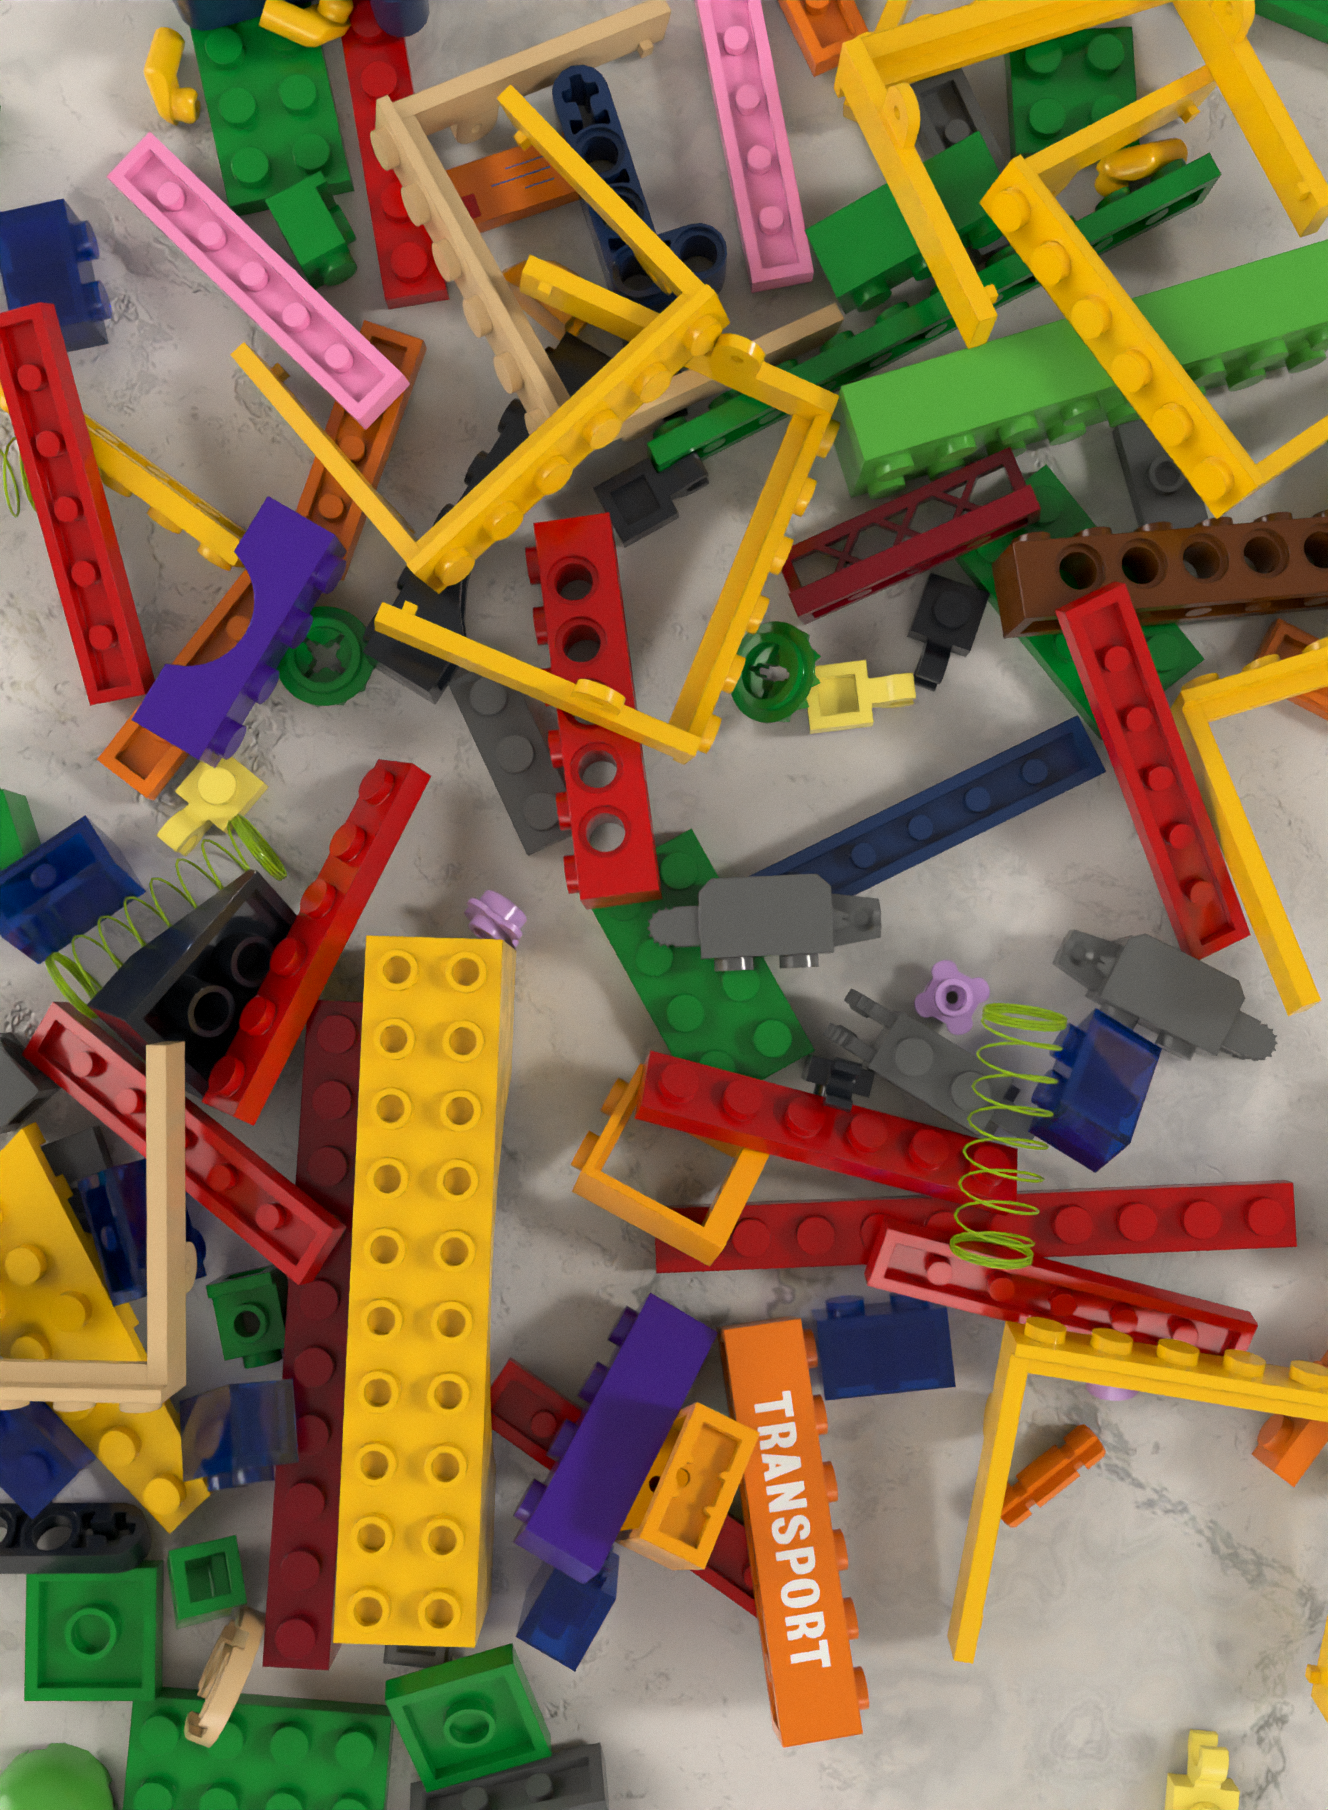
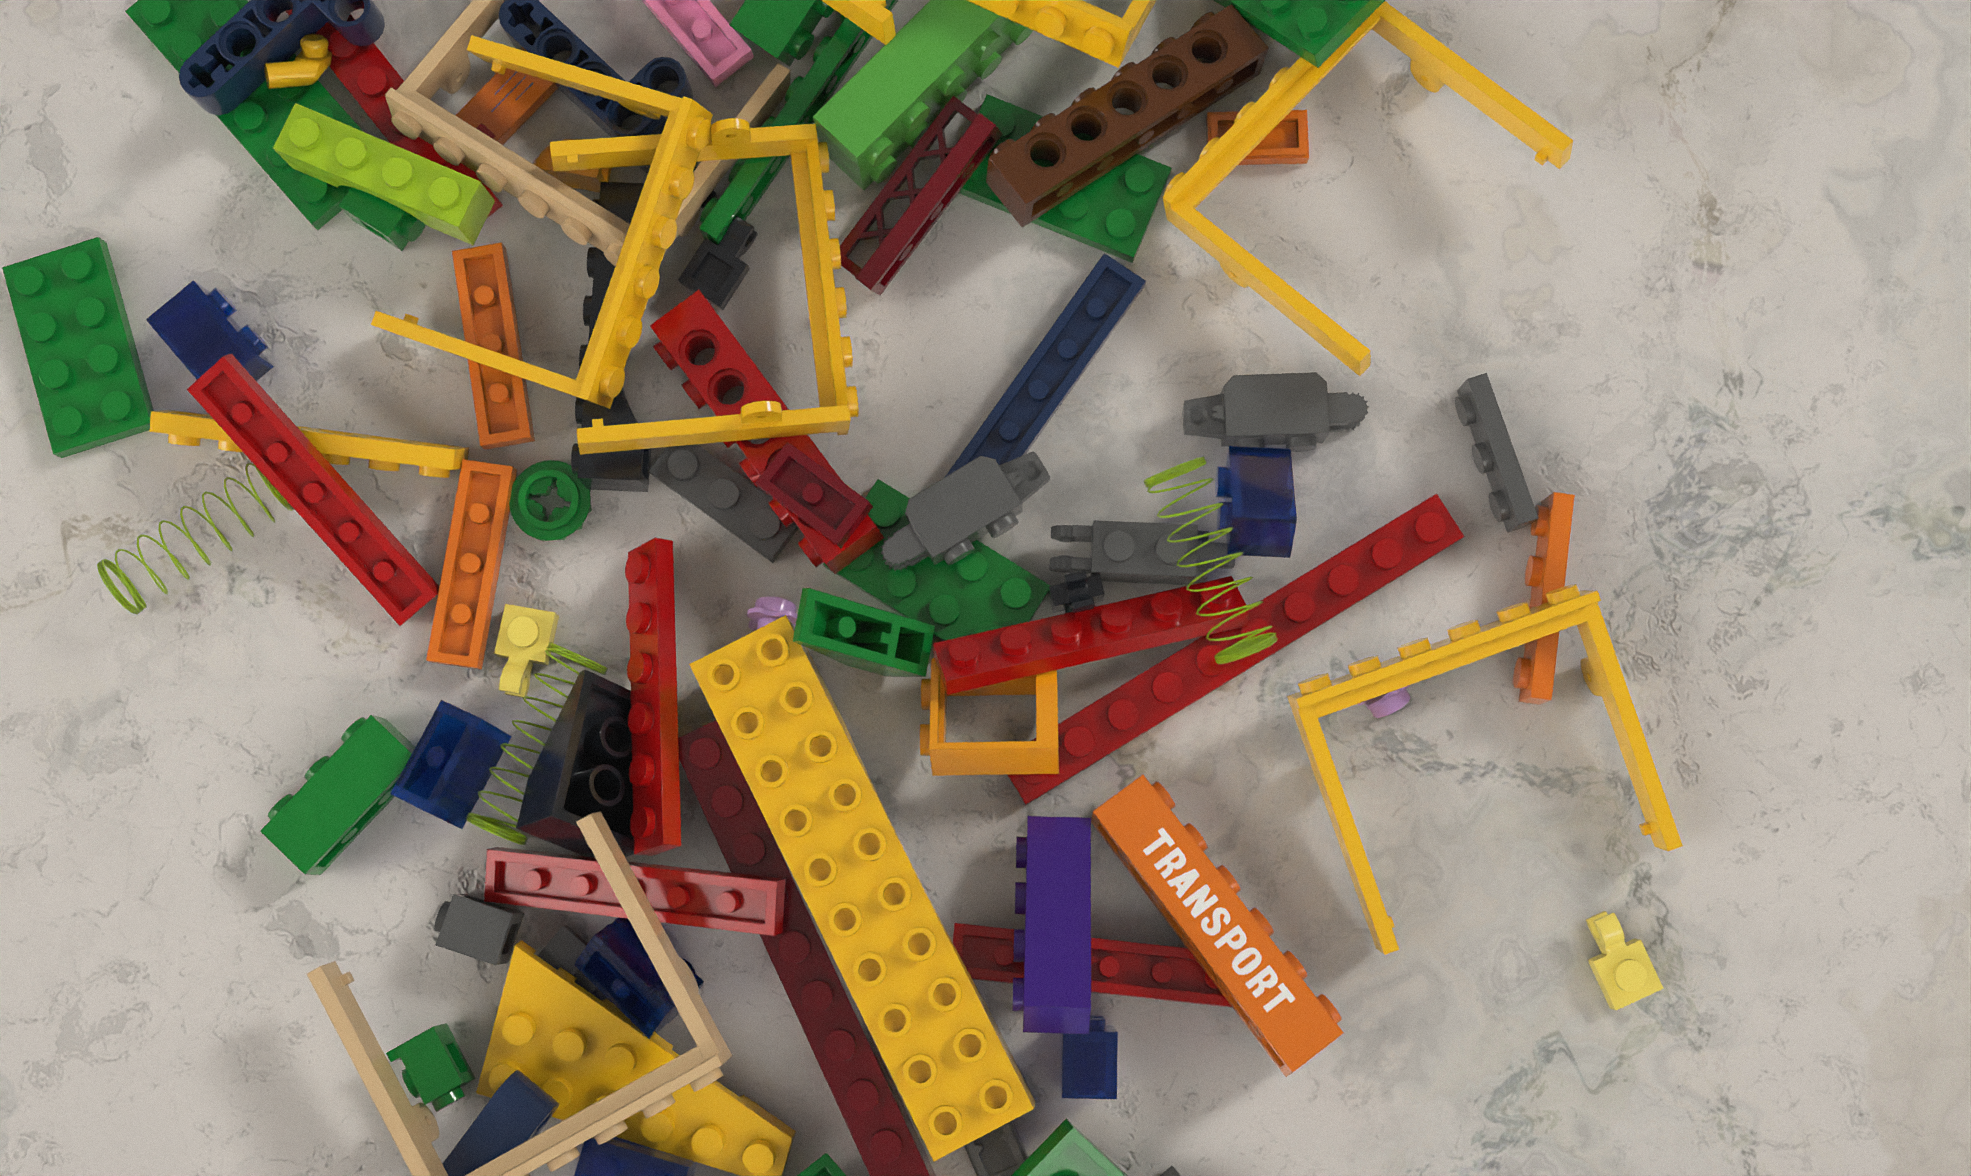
camera: 25 degrees left, 5 degrees down
(161, 71) = (214, 160): yellow arm -> none
(207, 703) = (485, 576): dark purple arch -> none
(238, 1434) = (787, 1074): clear blue brick -> none
(254, 1290) = (747, 972): green brick -> none
(258, 281) = (362, 263): bright pink plate -> none
(334, 190) = (409, 181): none -> lime arch
(578, 1001) = (863, 635): none -> green slope
(608, 818) = (814, 495): none -> dark red plate
(697, 1483) = (1123, 927): light orange window -> none
(775, 646) = (862, 323): green gear -> none
(848, 695) = (935, 329): light yellow plate -> none
(882, 1346) = (1213, 765): clear blue brick -> none
(922, 1266) = (1274, 673): red plate -> none
(934, 1003) = (1117, 507): lavender plate -> none
(946, 623) = (978, 240): black plate -> none
(1051, 1474) = (1383, 793): orange axle -> none
(1152, 769) = (1175, 261): red plate -> none
(1154, 481) = (1067, 66): dark grey plate -> none

